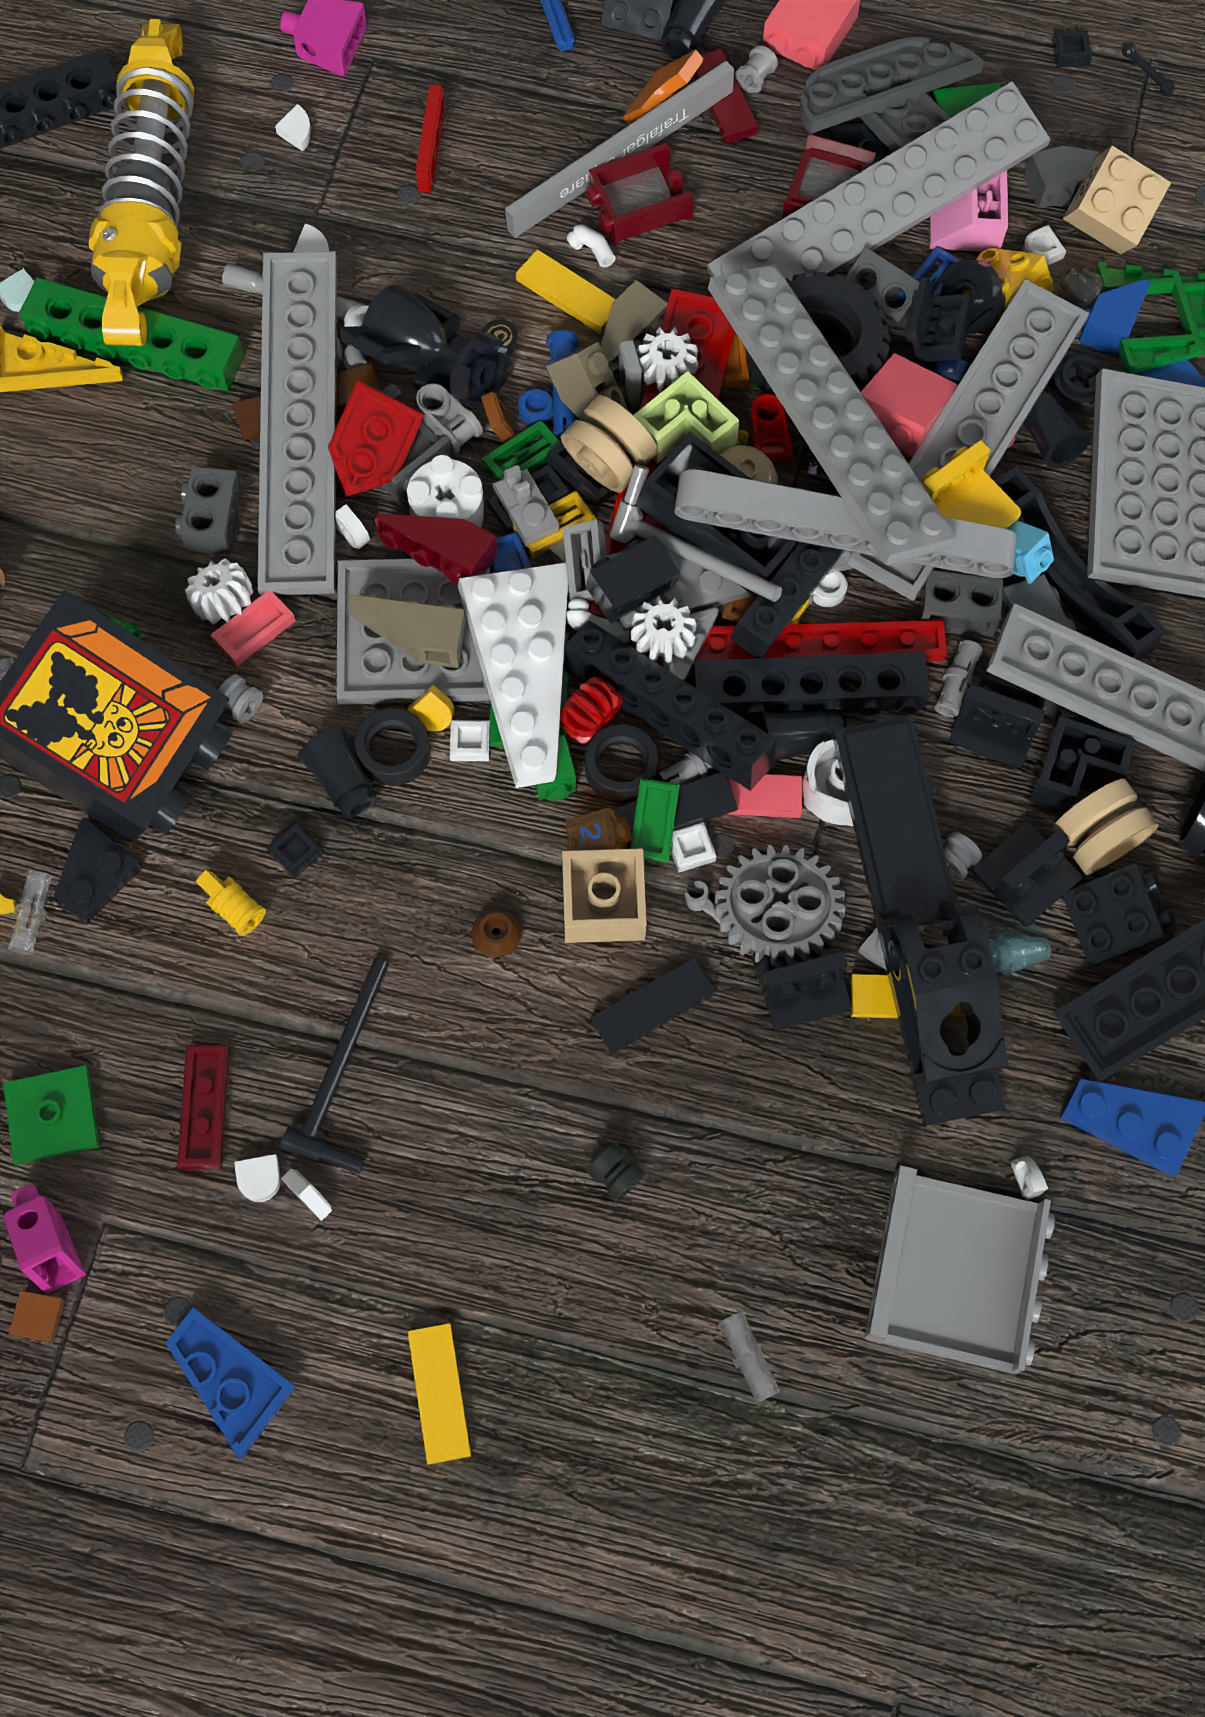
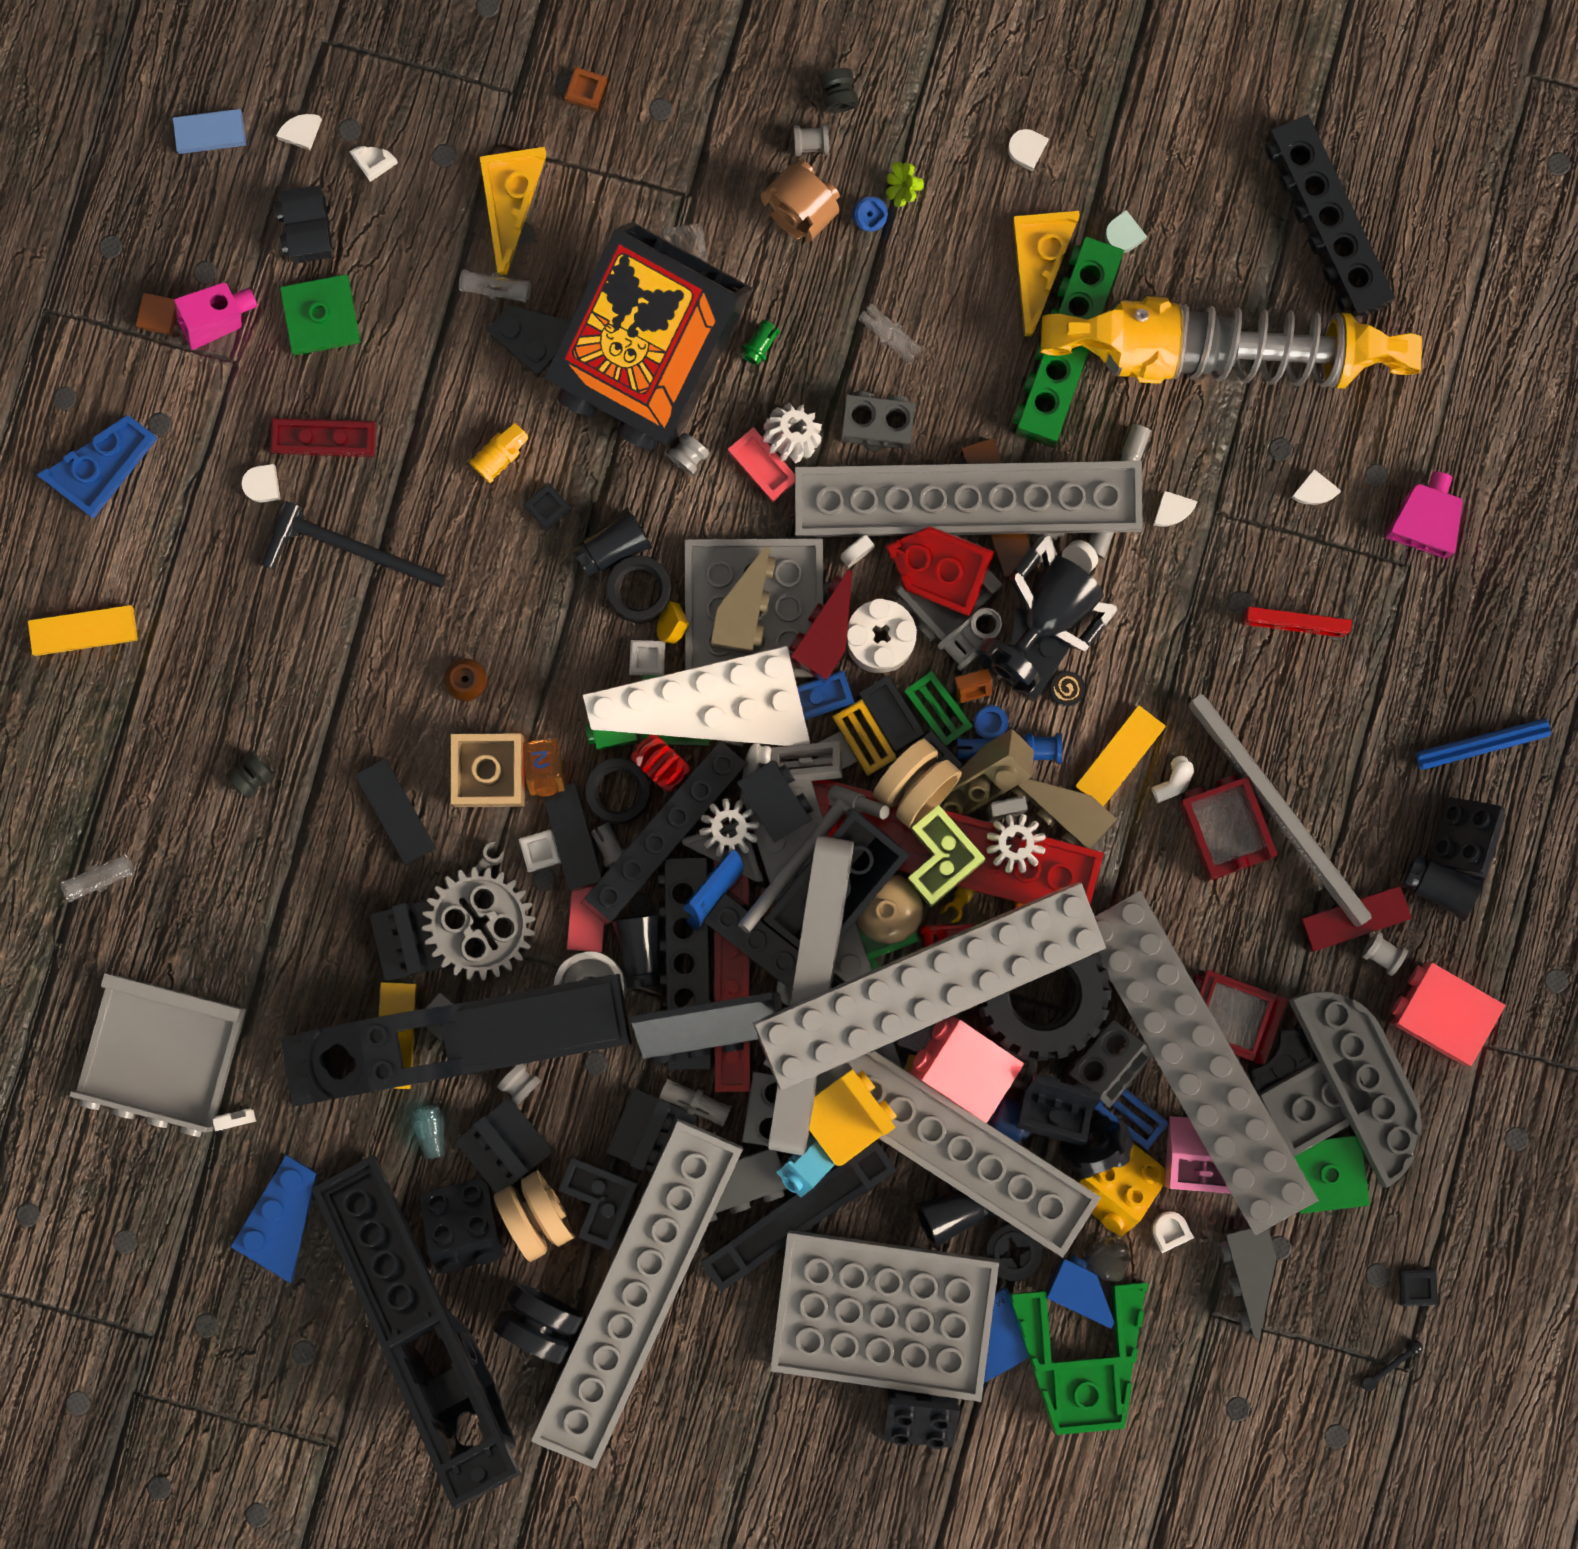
camera: 90 degrees right, 15 degrees up
(112, 503) = (890, 333): none -> clear pin
(307, 1193) = (243, 520): white tile -> none
(525, 505) = (876, 710): light grey plate -> none
(655, 819) = (556, 817): green tile -> none
(663, 85) = (1358, 857): orange tile -> none
(734, 637) = (713, 888): none -> blue slope
(882, 637) = (702, 1027): none -> slope
(1117, 200) = (1204, 1304): tan brick -> none

